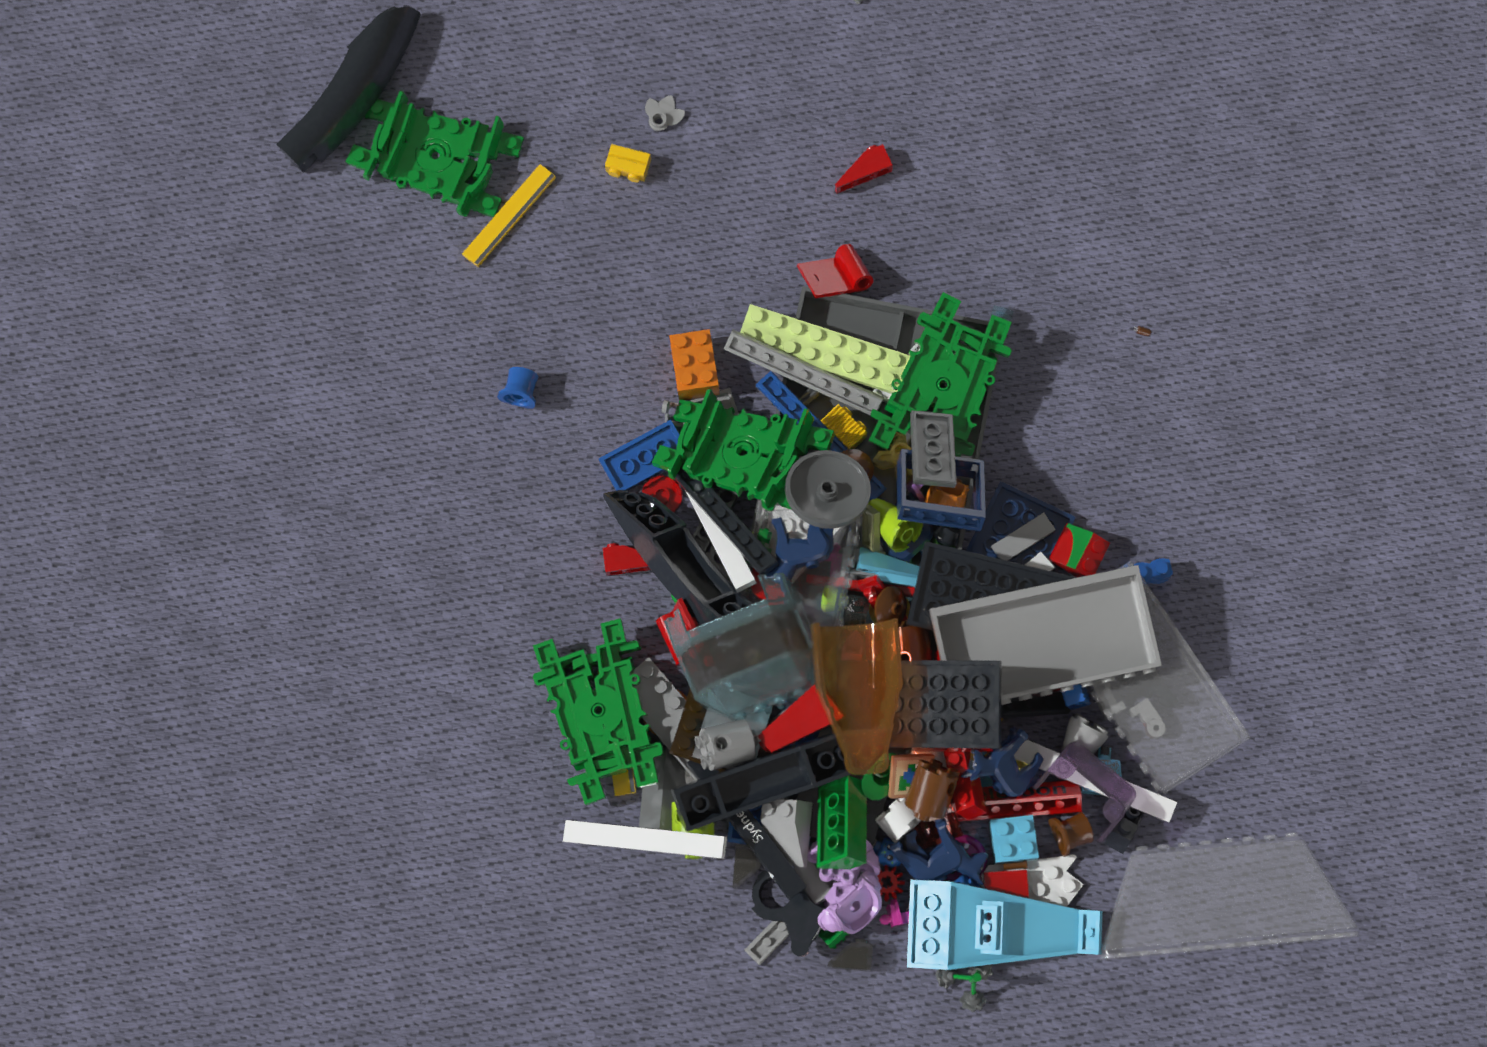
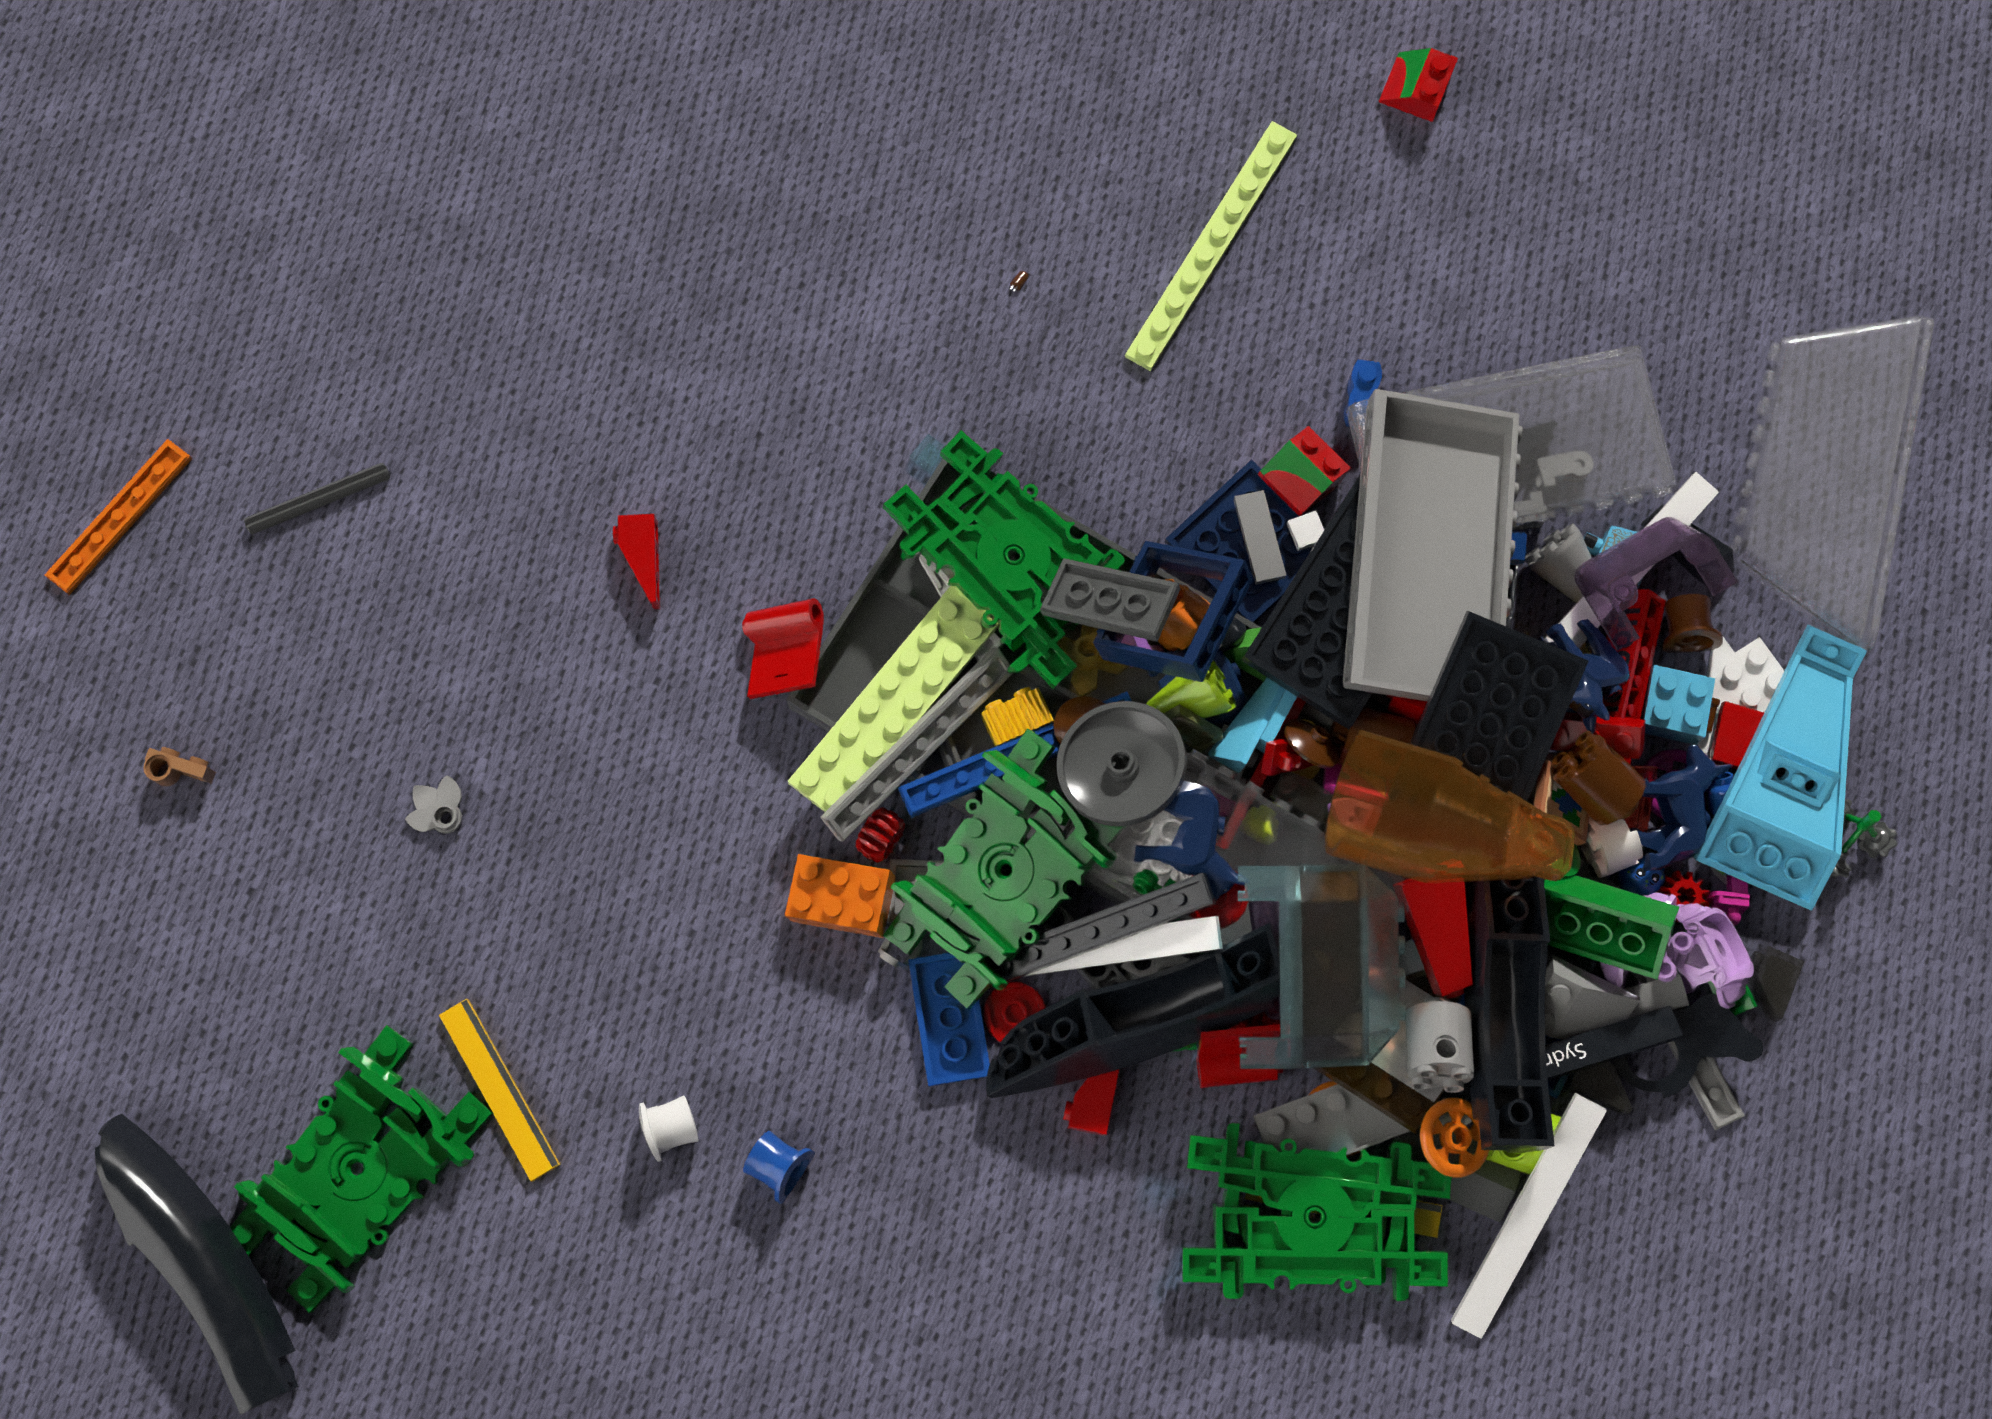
camera: 75 degrees left, 0 degrees up
(519, 316) = (667, 1126): none -> white piece
(627, 163) = (493, 884): yellow brick -> none
(658, 770) = (1439, 1158): none -> orange plate
(740, 374) = (880, 834): none -> red gear
(1218, 443) = (1210, 246): none -> yellowish green plate
(1391, 539) = (1418, 82): none -> red slope

